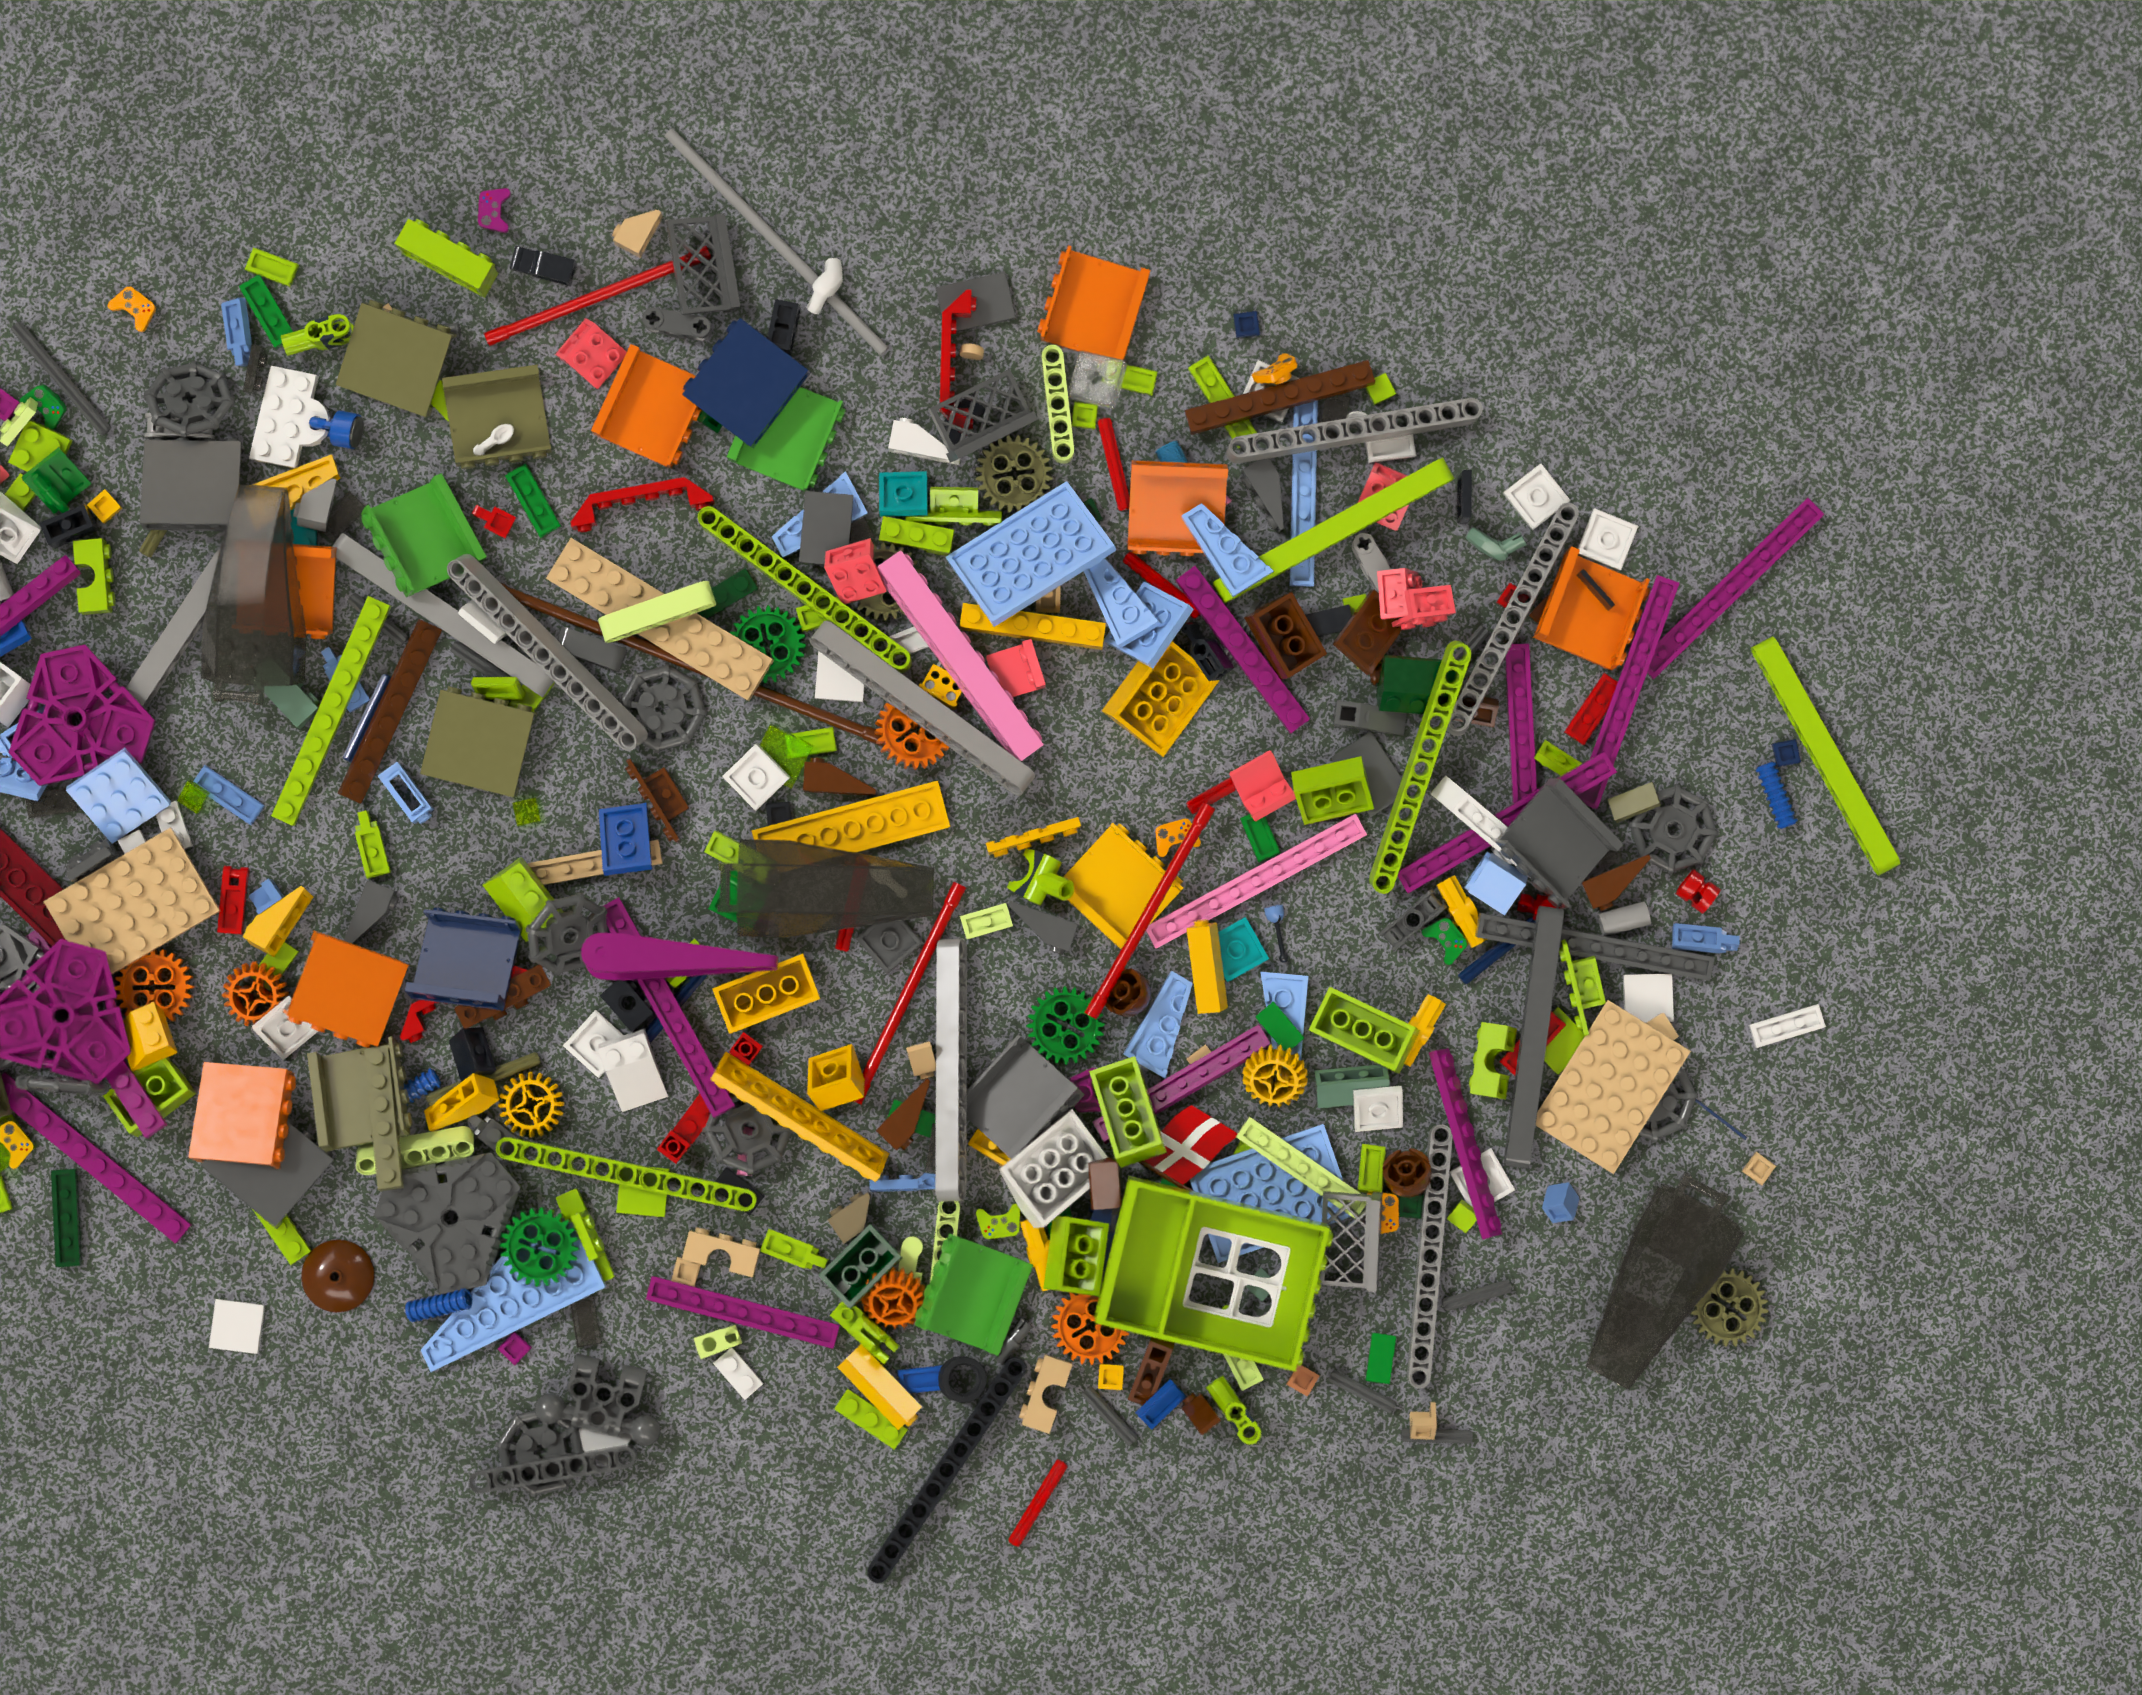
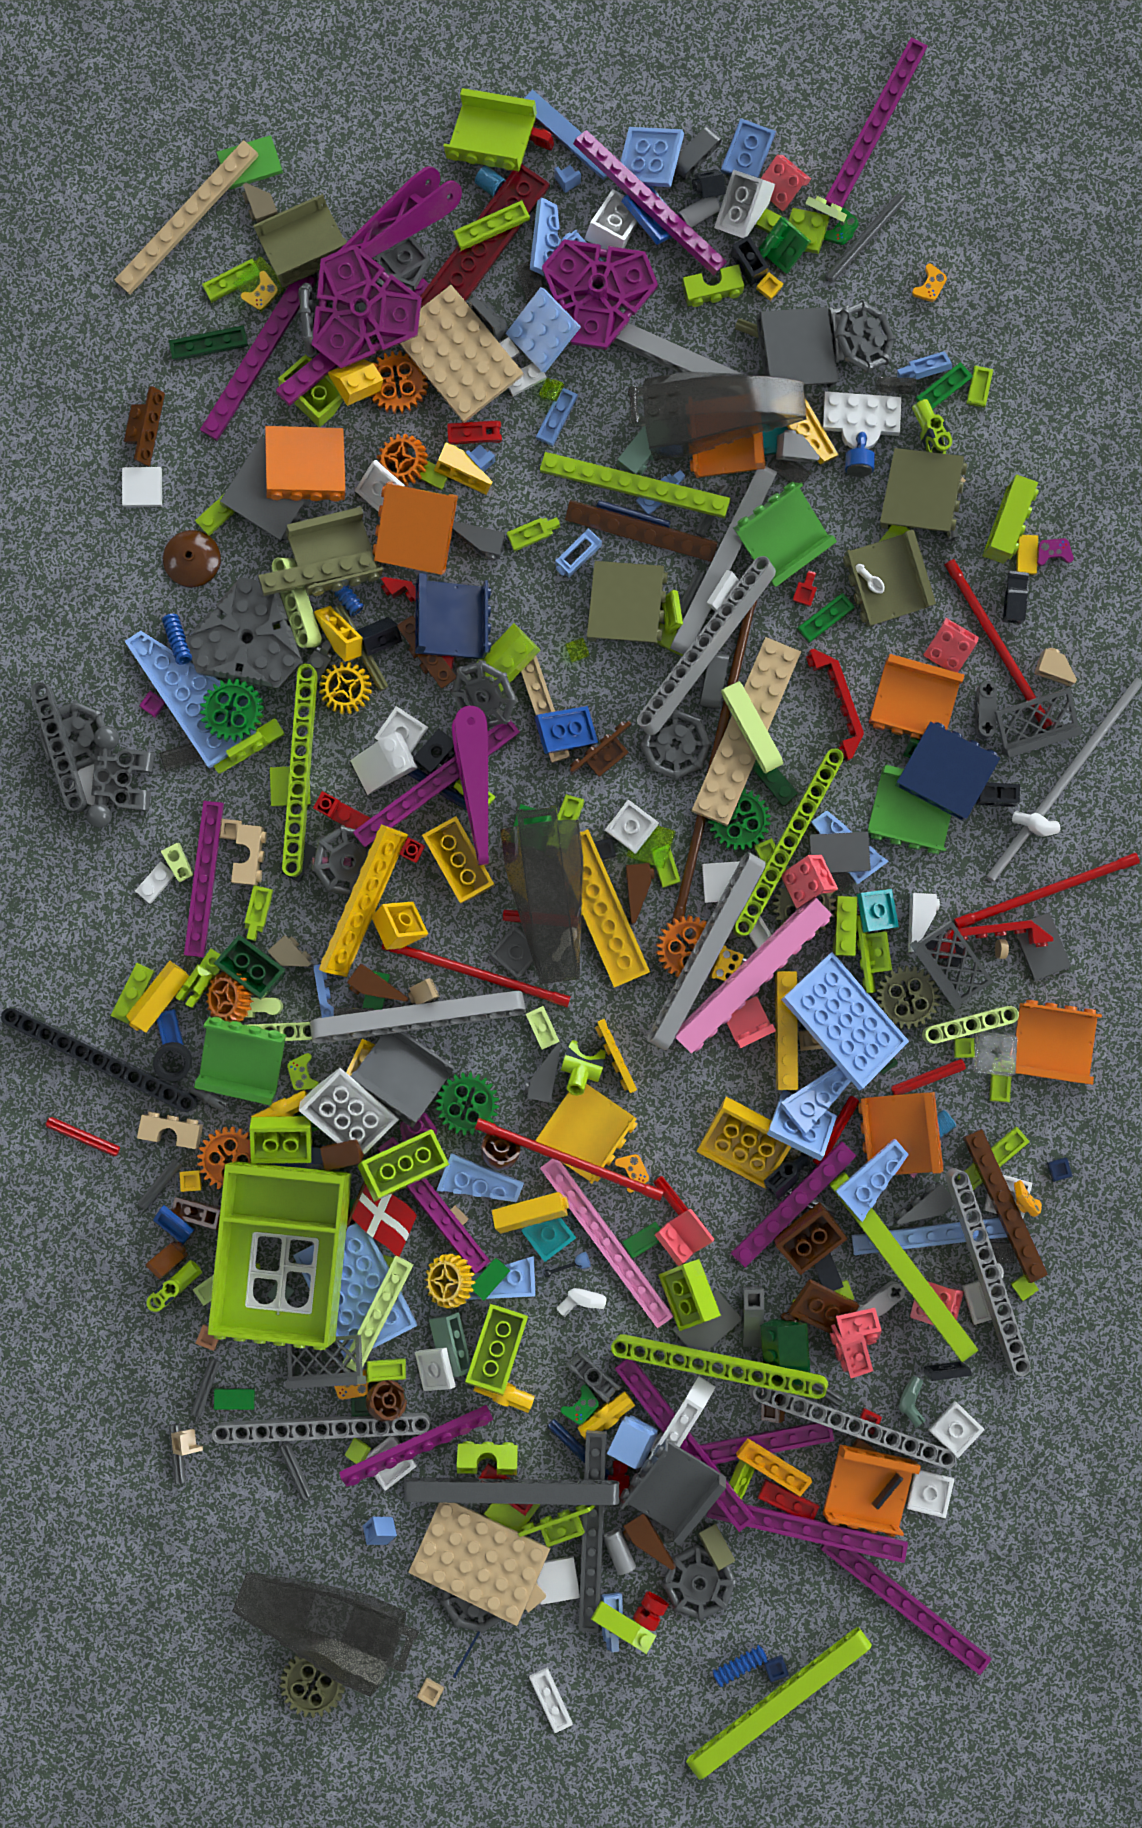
camera: 90 degrees right, 0 degrees up
(159, 1314) = (143, 425): none -> reddish brown bracket
(492, 242) = (1027, 554): none -> yellow tile
(889, 190) = (1121, 863): none -> red piece
(1317, 921) = (581, 1297): none -> white arm
(1549, 719) = (774, 1467): none -> light orange plate
(1711, 925) = (623, 1627): none -> lime slope

